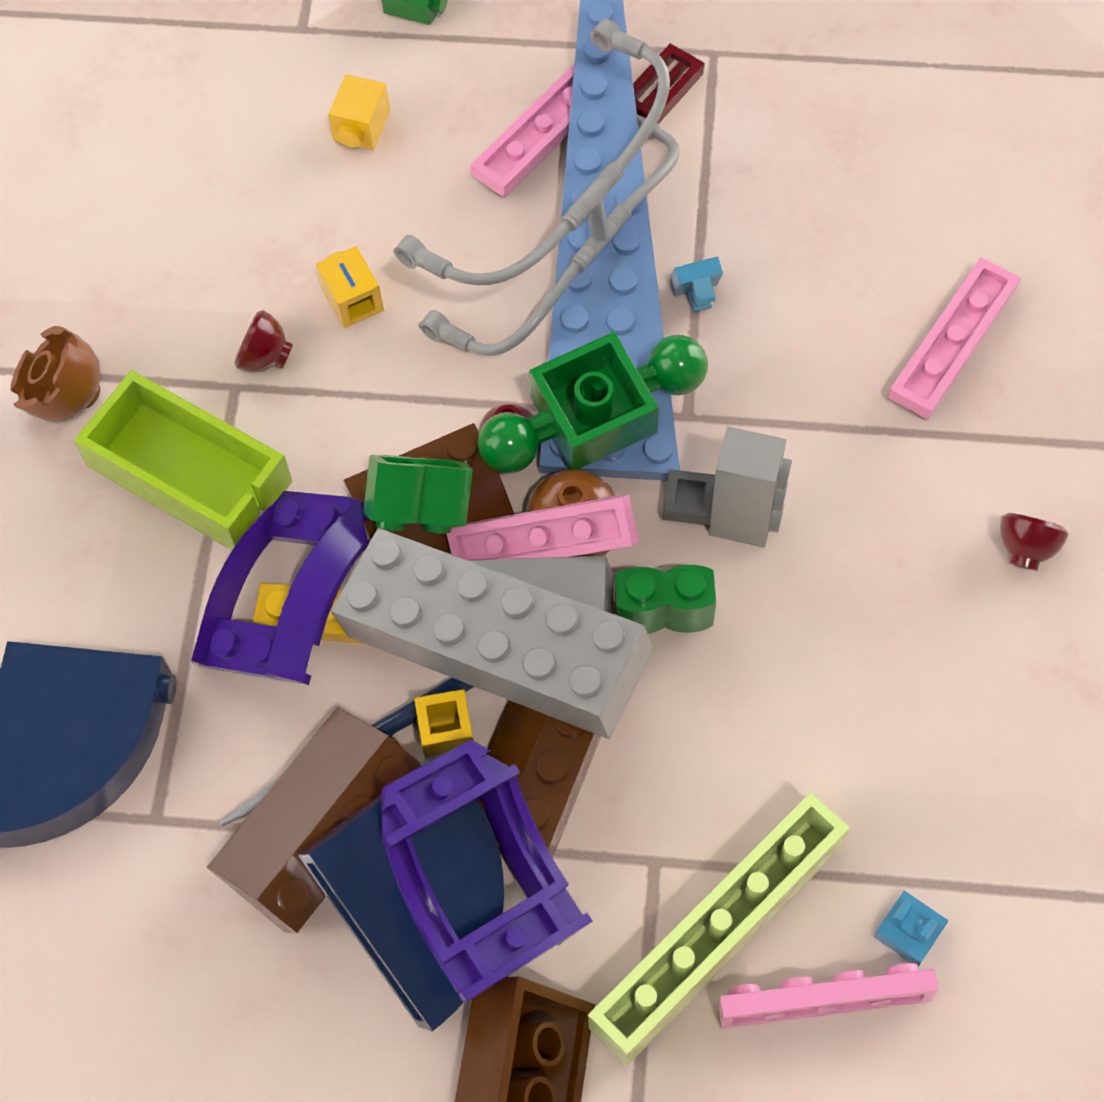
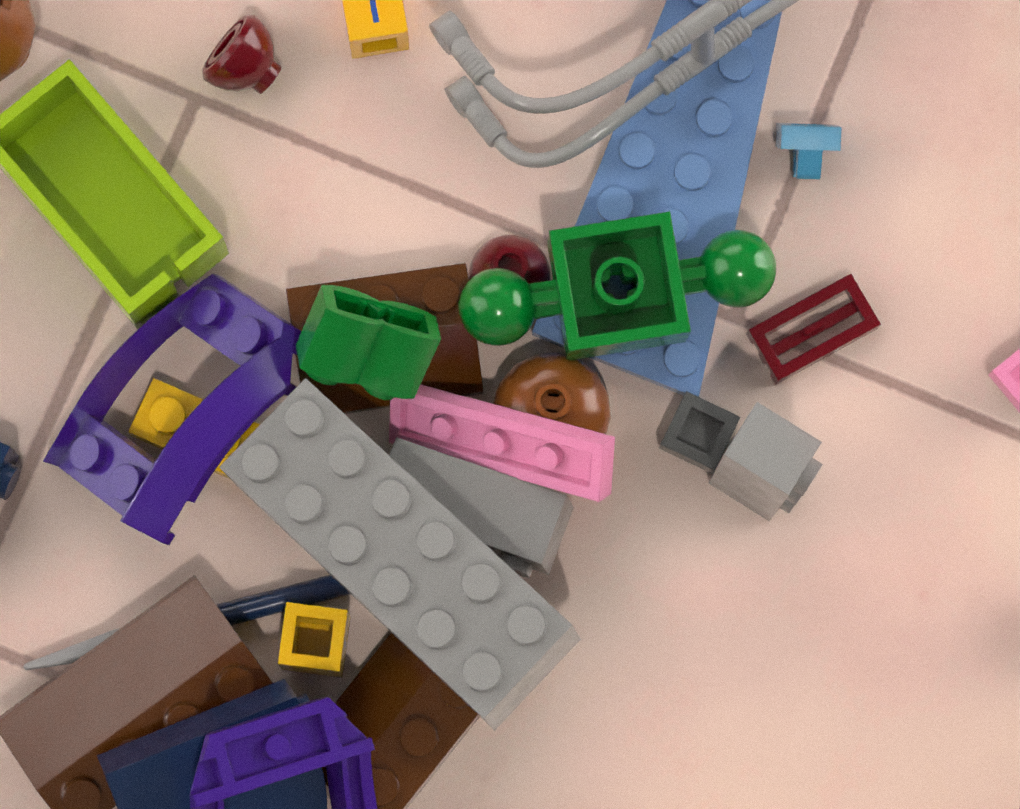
camera: 10 degrees right, 15 degrees up
(672, 599) = (639, 563): green brick -> none
(776, 379) = (770, 353): none -> dark red tile

